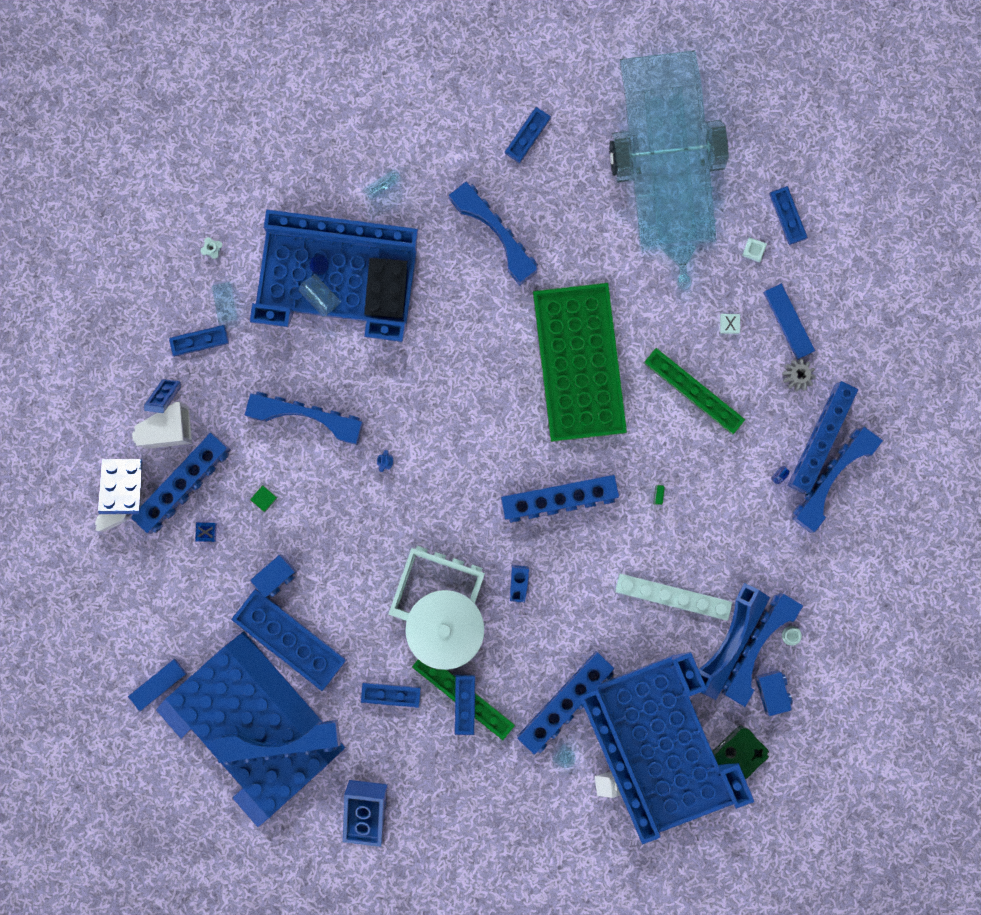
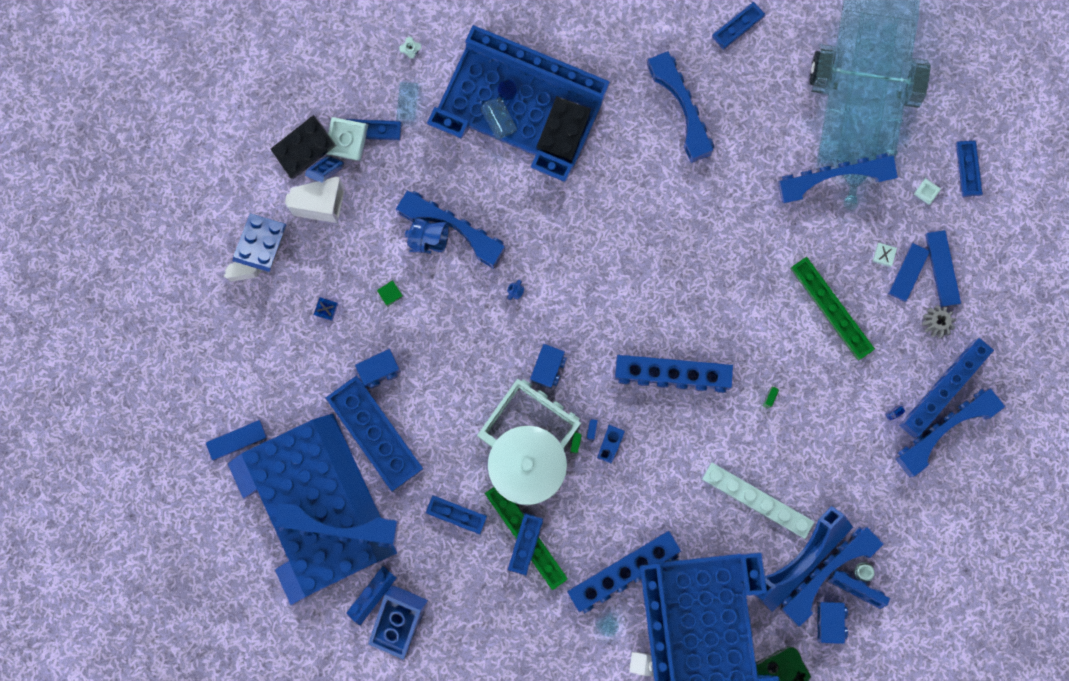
camera: 20 degrees right, 5 degrees down
(135, 378) = (303, 147): none -> black plate
(171, 484) = (306, 255): blue brick -> none
(175, 358) = (348, 137): none -> light aqua tile
(281, 433) = (427, 236): none -> blue hat
(332, 795) = (371, 595): none -> blue plate
(382, 184) = (587, 33): clear light blue slope -> none
(437, 526) = (547, 366): none -> blue brick
(485, 593) = (576, 443): none -> green tile
(497, 576) = (592, 429): none -> blue tile
(579, 362) = (728, 250): green plate -> none
(704, 241) = (881, 169): none -> blue arch
(757, 334) = (908, 272): none -> blue tile
(791, 653) = (859, 589): none -> blue plate

